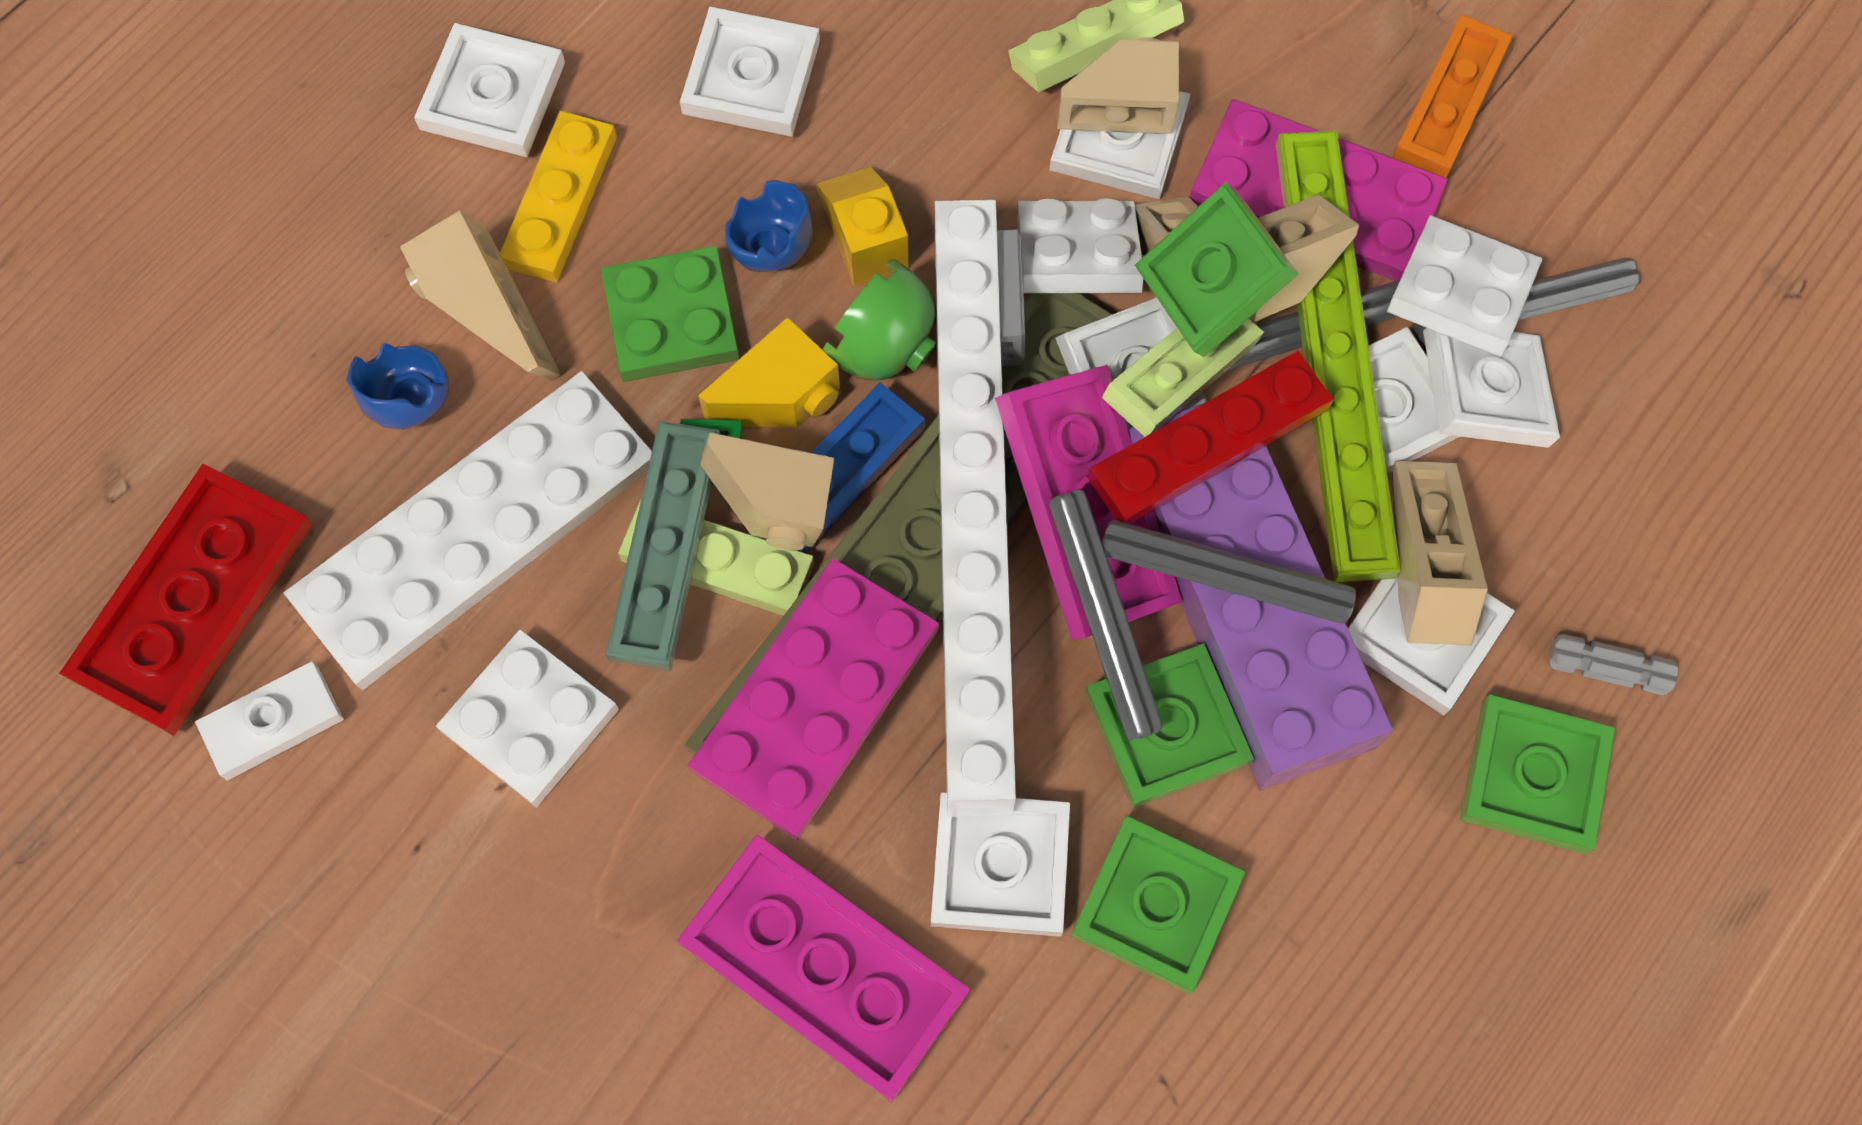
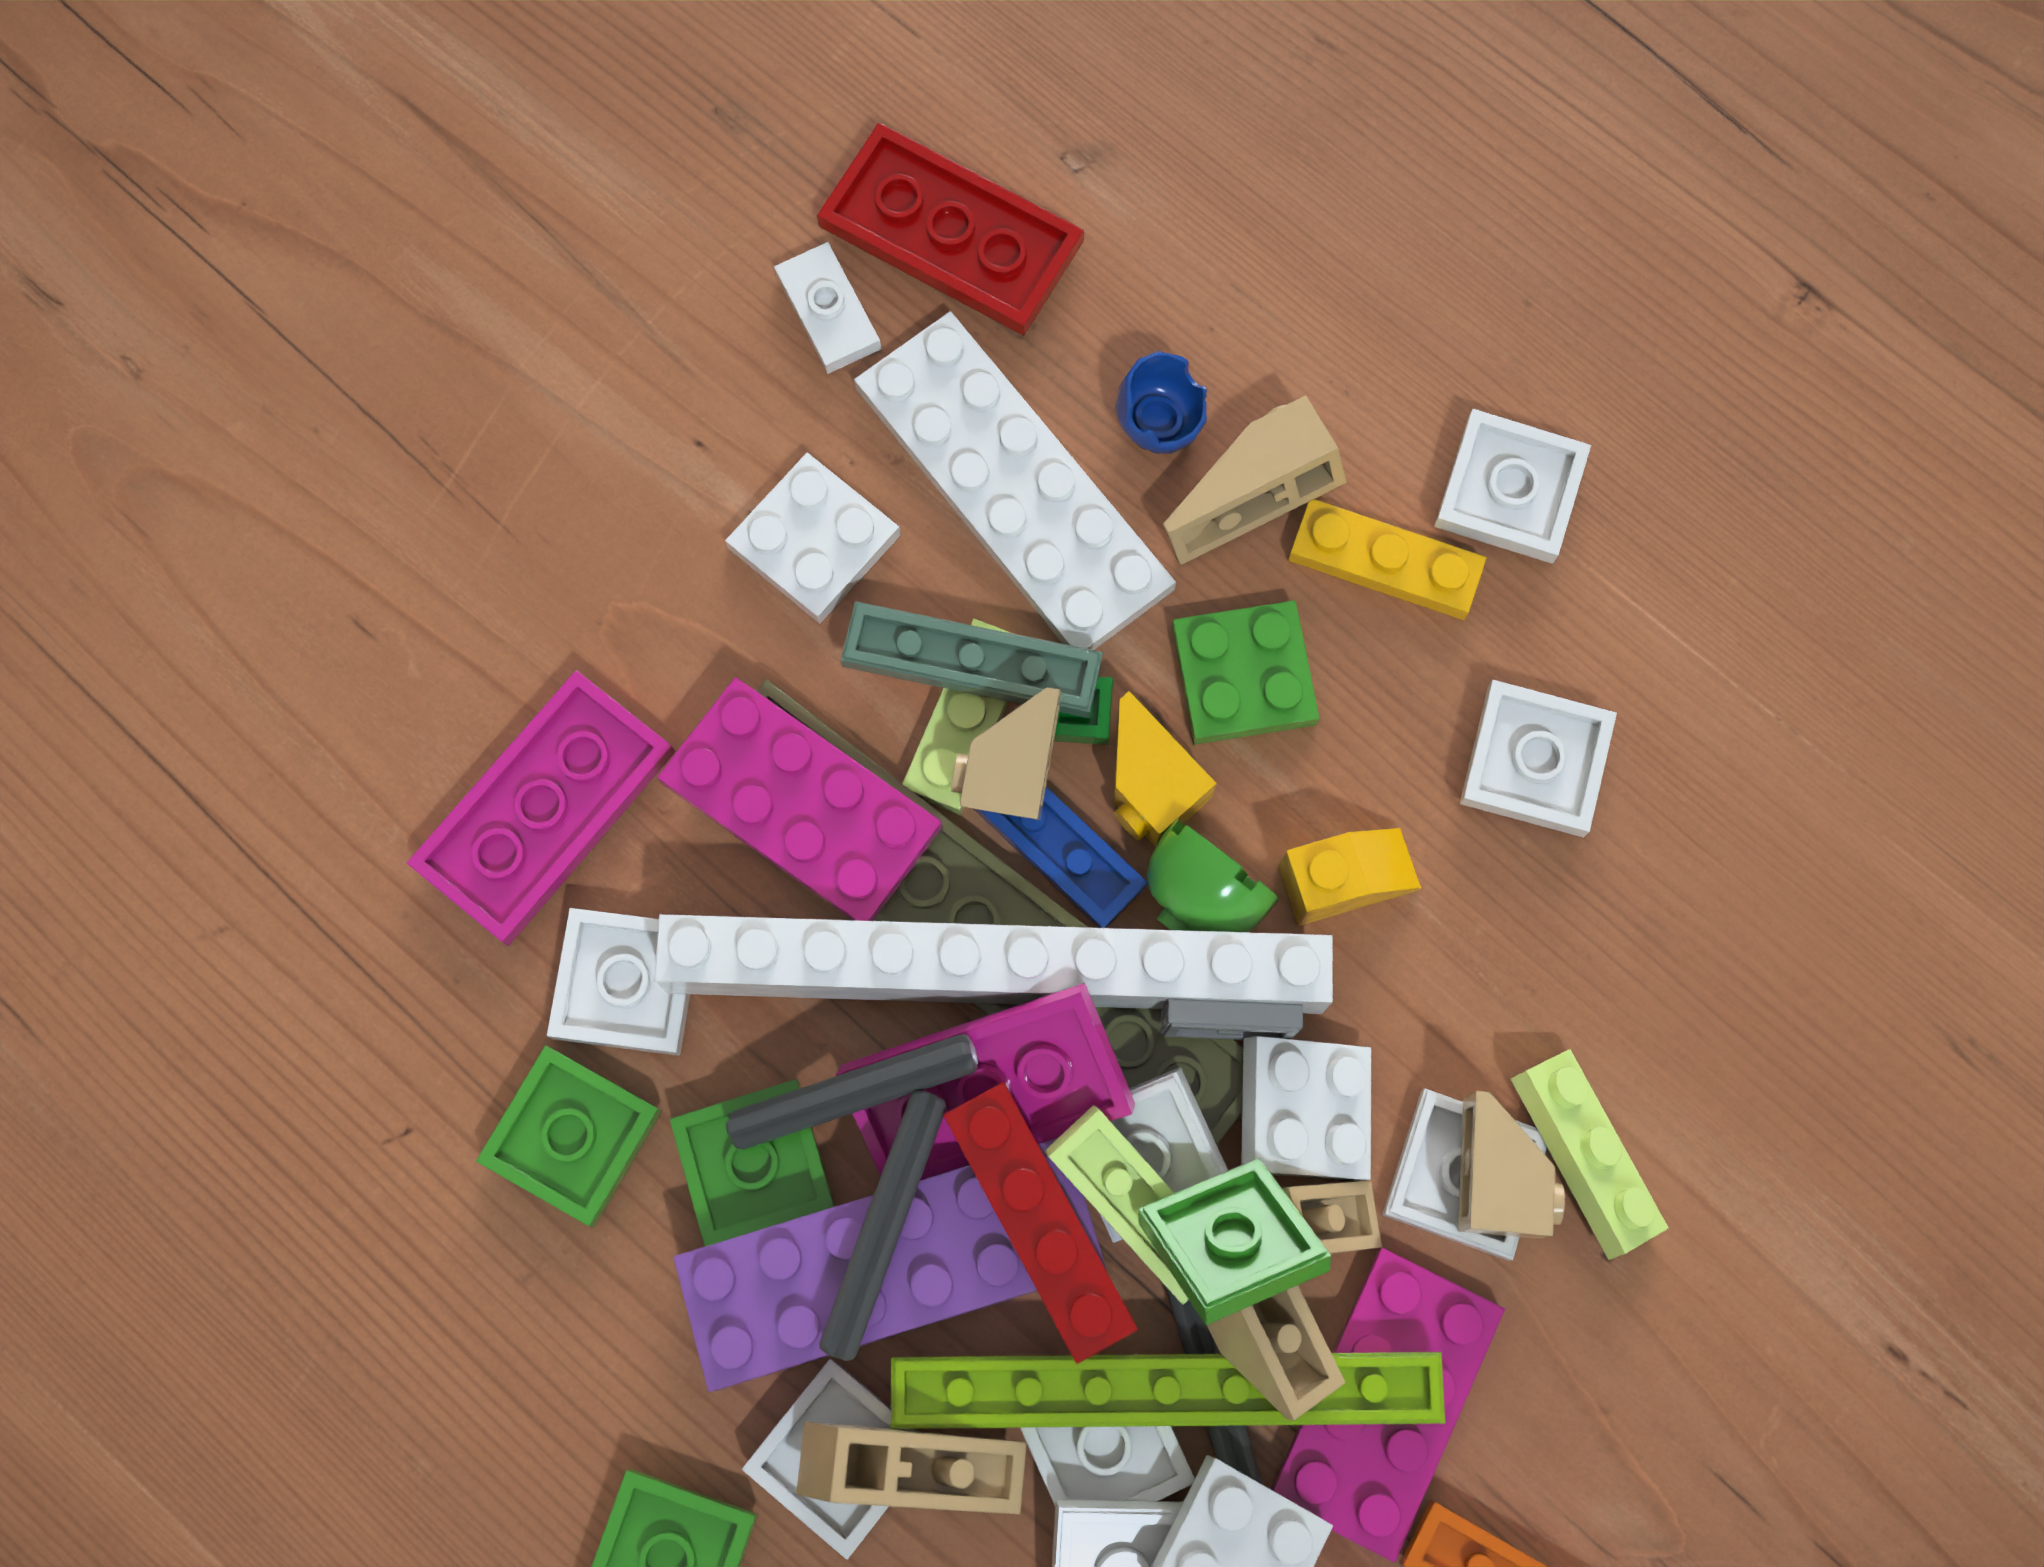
camera: 95 degrees right, 5 degrees up
(770, 229) = (1333, 772): blue hair -> none

